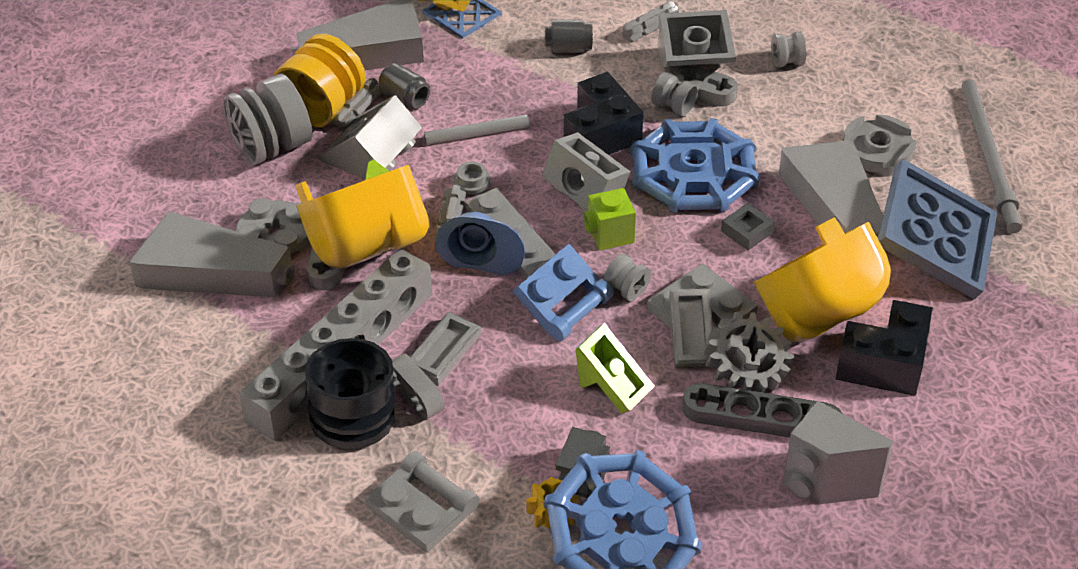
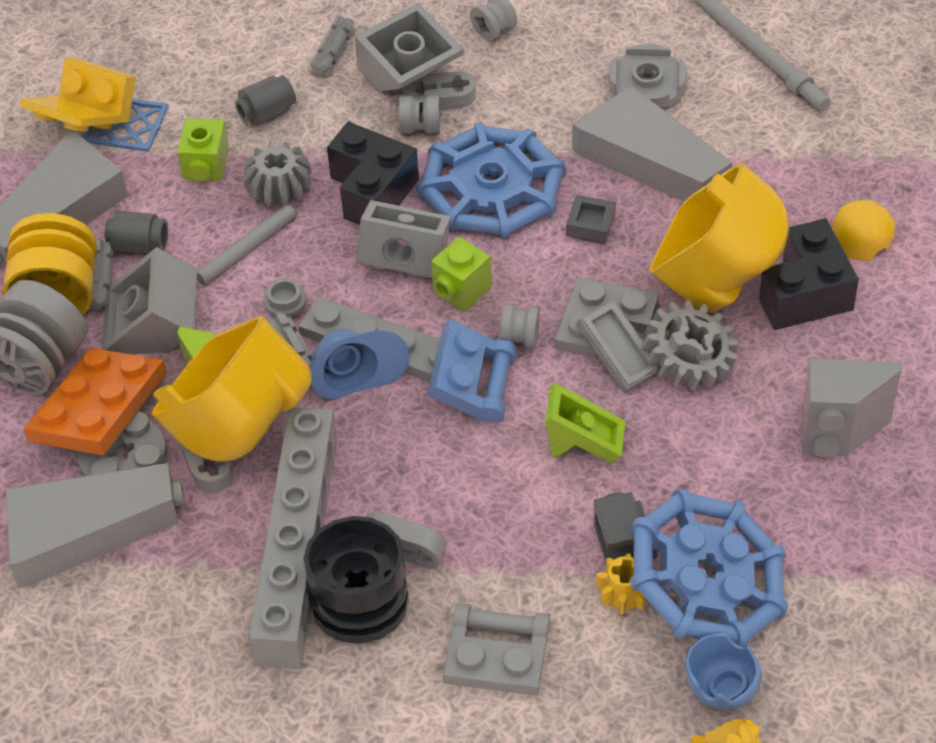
camera: 30 degrees left, 5 degrees up
(271, 185) = (95, 401): none -> orange plate
(445, 346) = (395, 482): light grey tile -> none
(496, 50) = (203, 149): none -> lime brick
(535, 90) = (277, 174): none -> light grey gear
(761, 404) = (735, 391): dark grey beam -> none
(938, 229) = (770, 136): sand blue plate -> none
(970, 336) = (863, 229): none -> yellow hair

